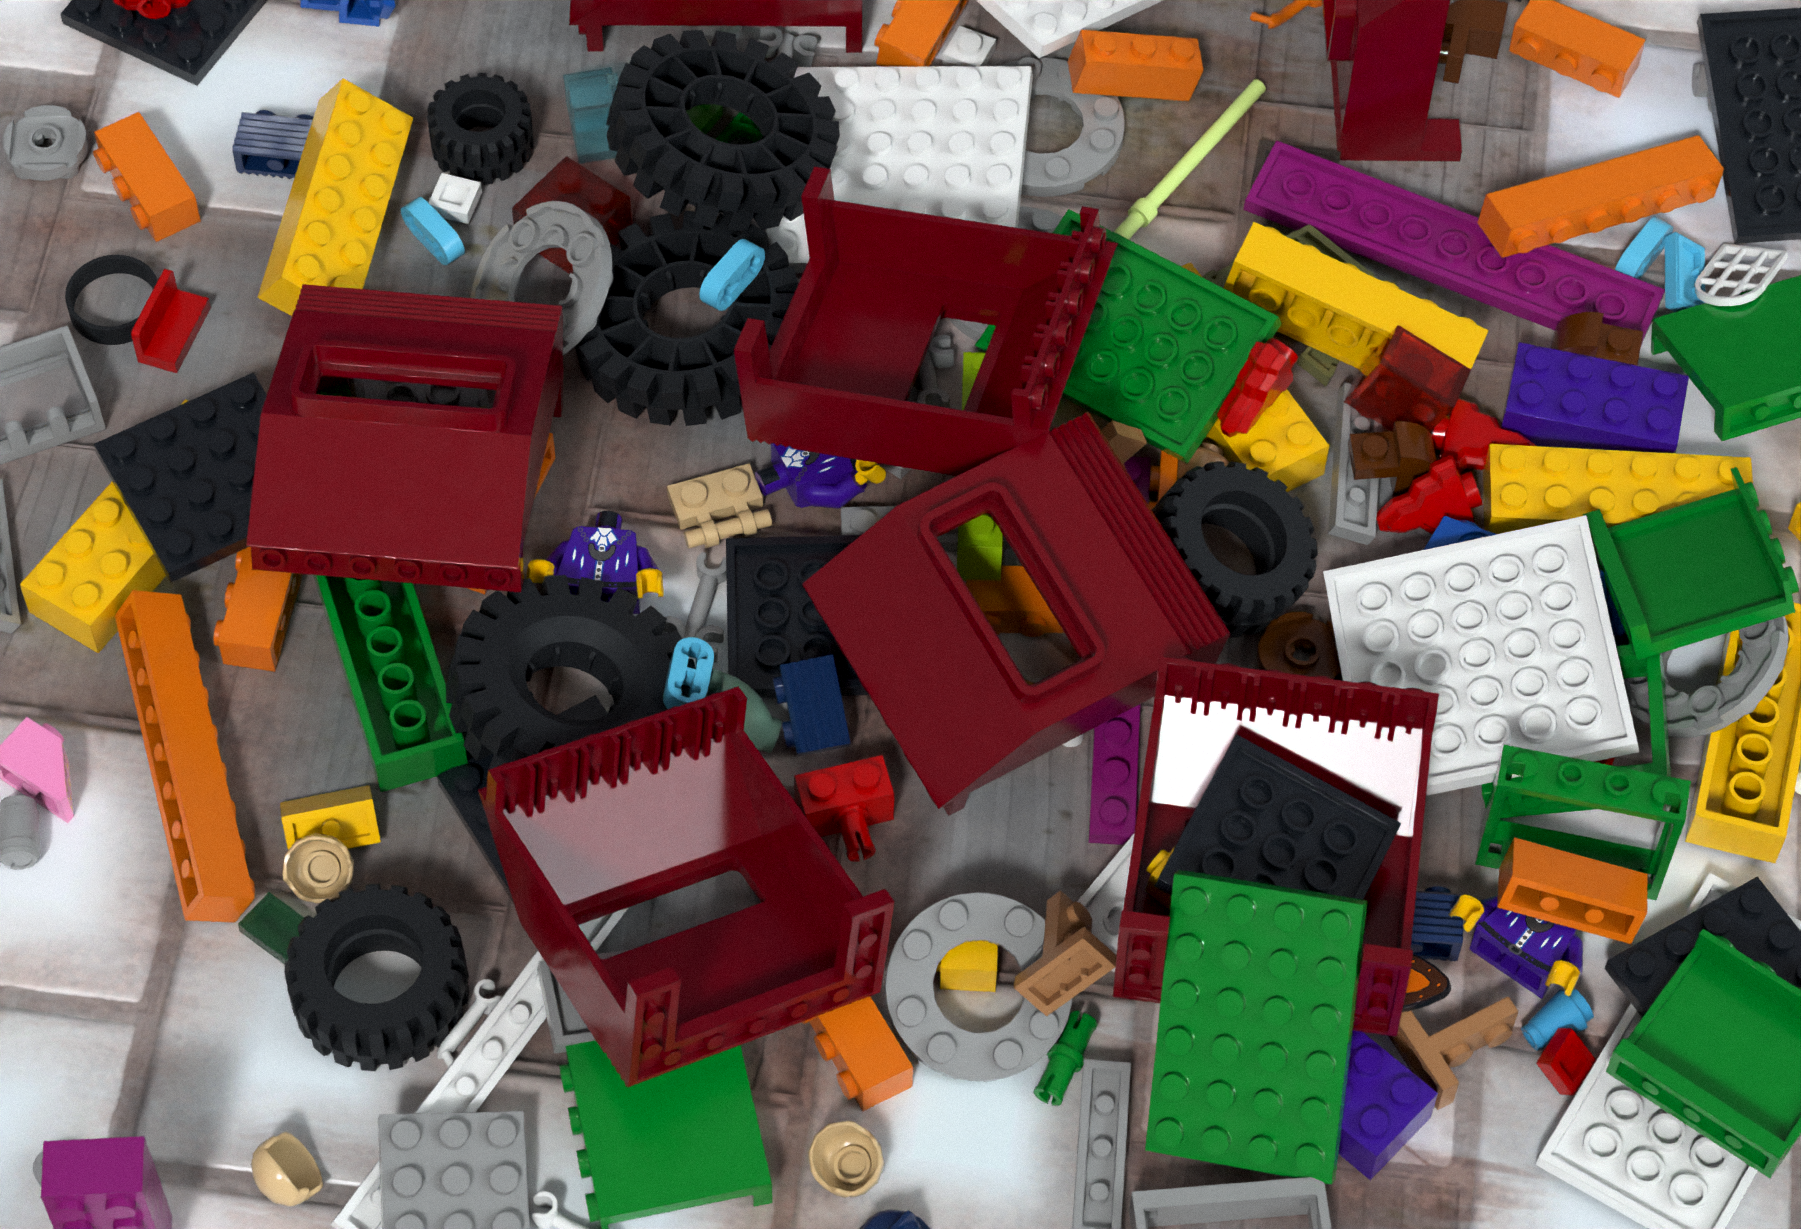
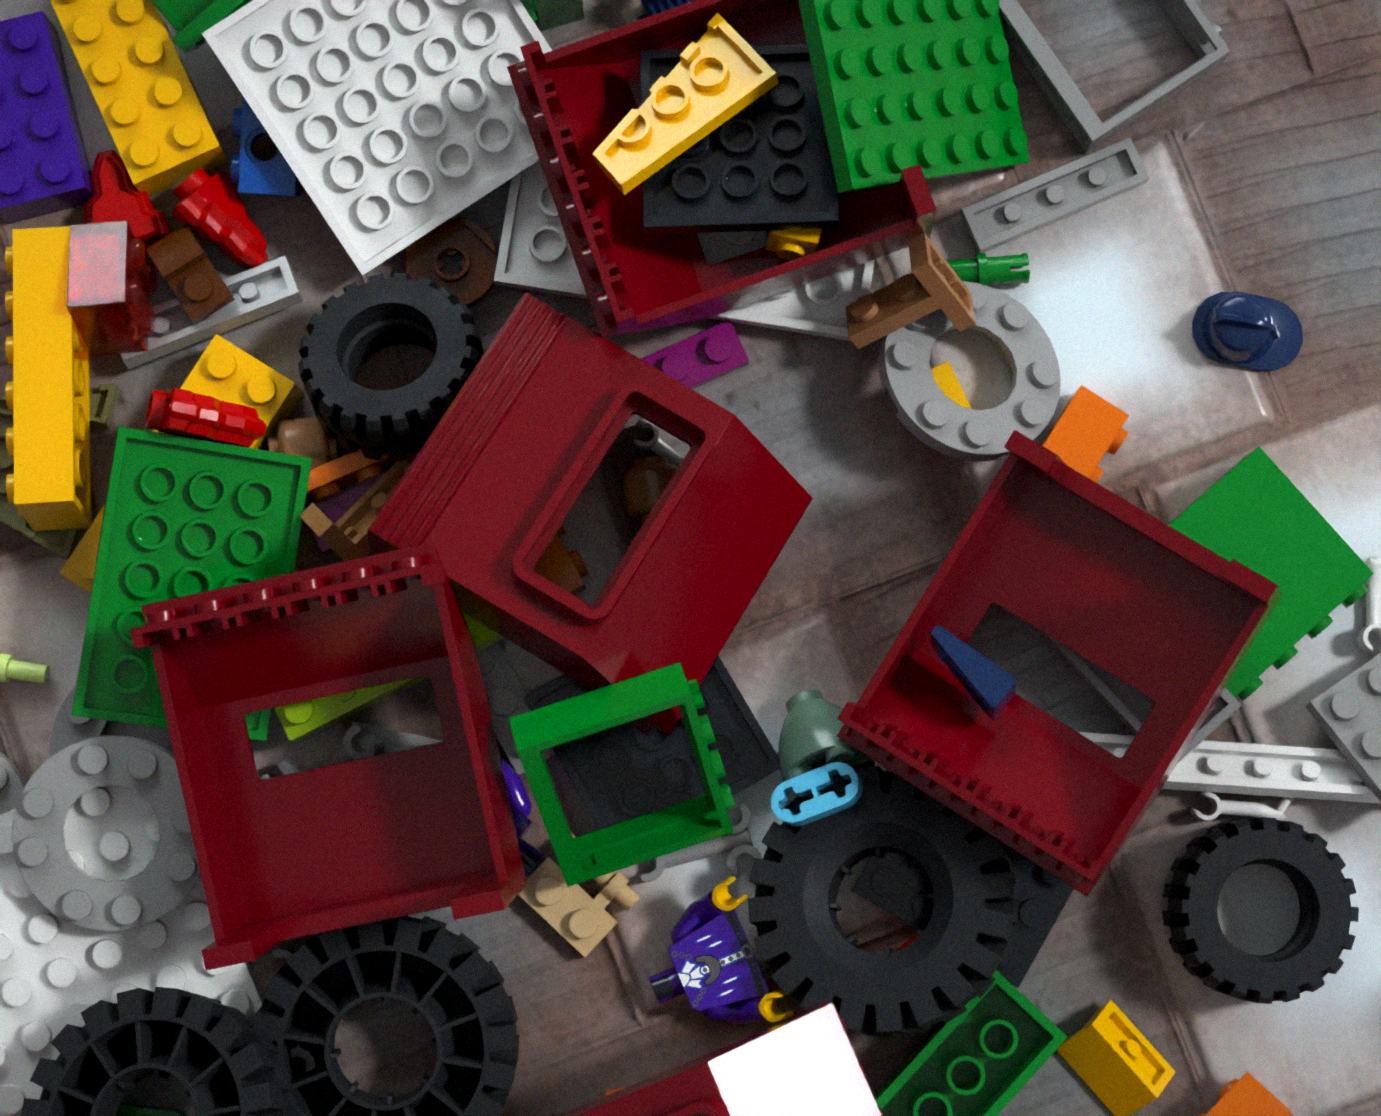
camera: 120 degrees left, 25 degrees up
(271, 926) = (1247, 1036): clear green tile -> none
(318, 868) = (1178, 1035): tan hair -> none
(707, 827) = (982, 679): none -> dark blue slope
(732, 274) = (337, 1011): medium azure beam -> none
(813, 706) = (765, 671): dark blue brick -> none
(842, 461) = (645, 835): none -> green window
(846, 1159) = (1190, 401): tan hair -> none
(847, 801) = (843, 591): red brick -> none
(977, 154) = (41, 842): none -> light grey plate
(1326, 817) = (698, 96): none -> yellow wing

